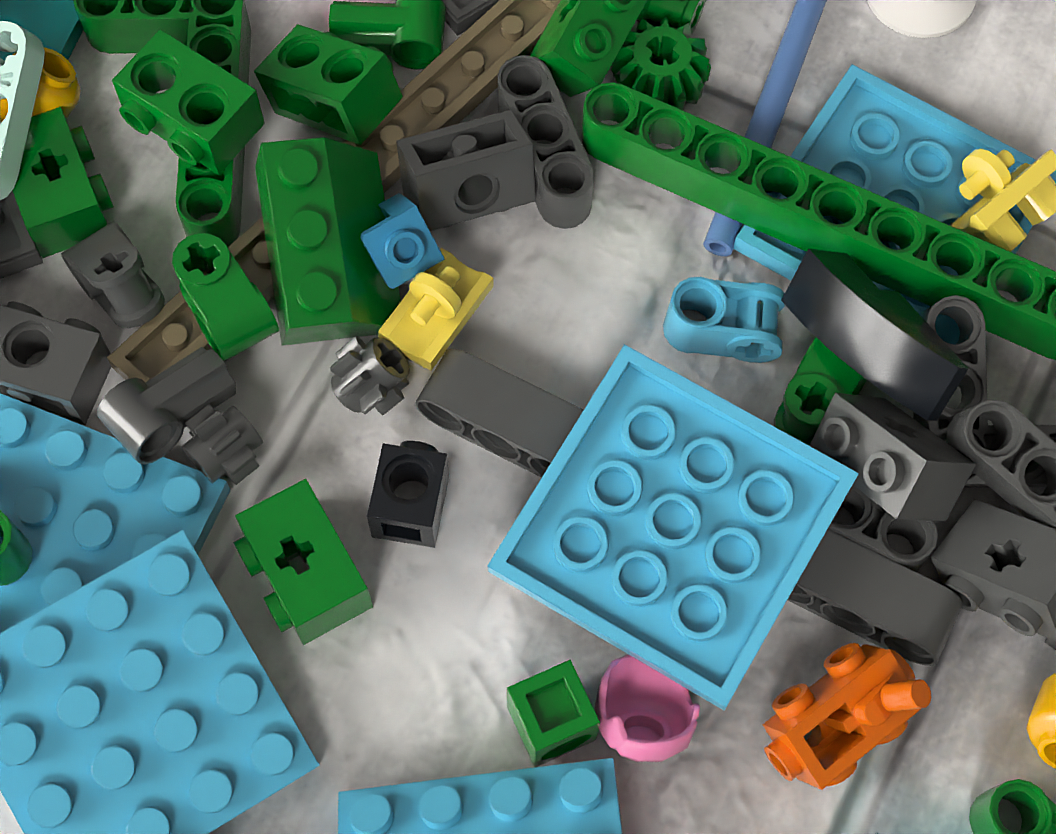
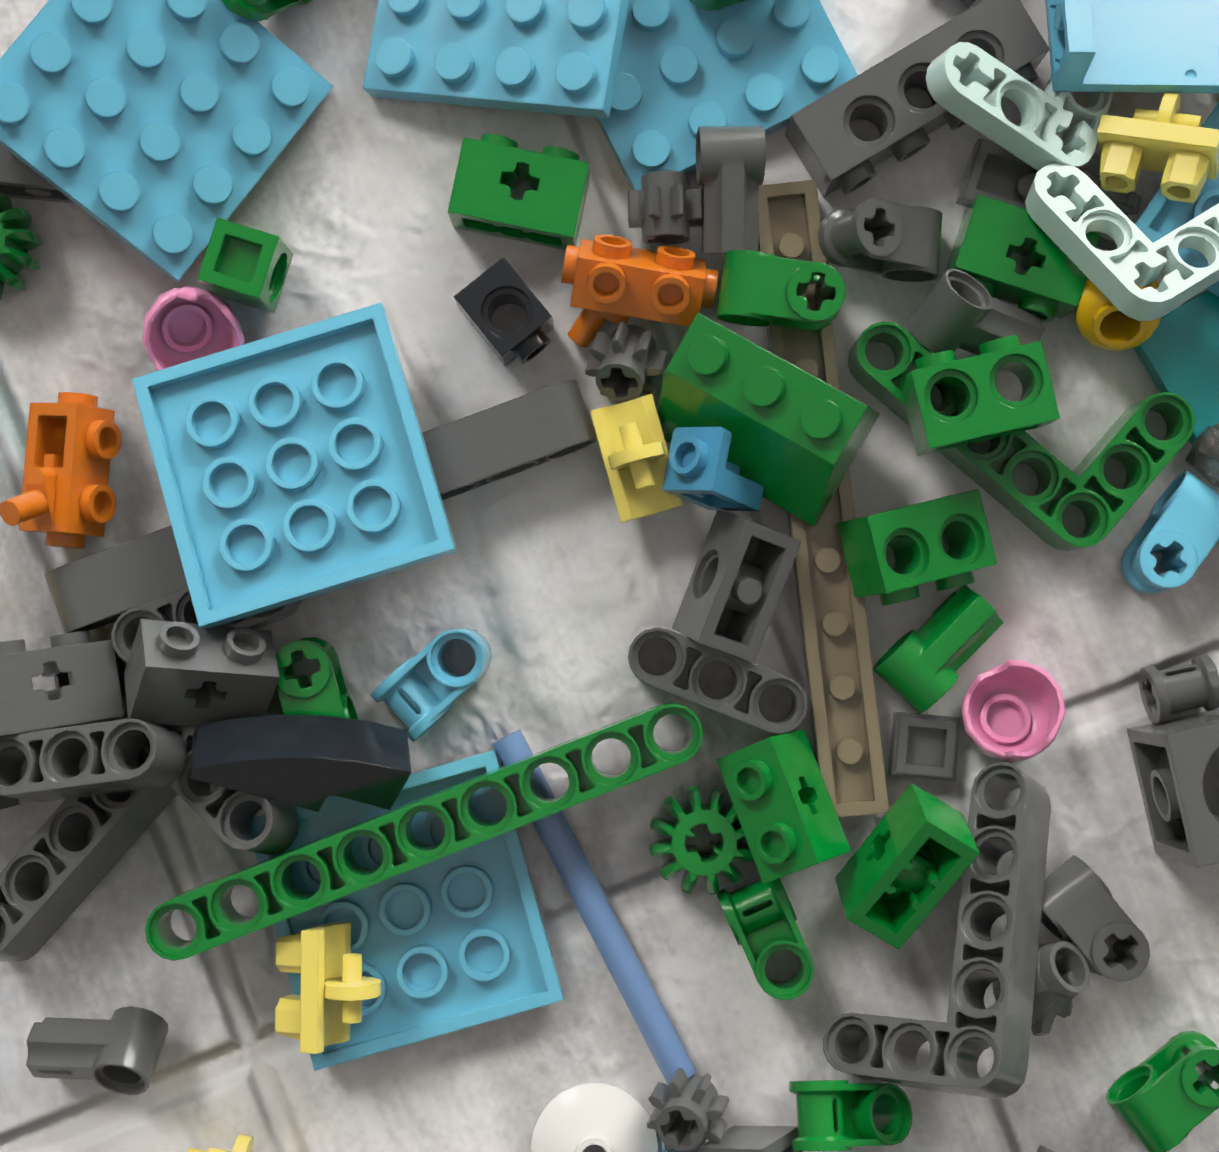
camera: 135 degrees right, 20 degrees up
(129, 169) = (965, 315): none -> dark grey piece
(302, 415) = (626, 282): none -> orange brick

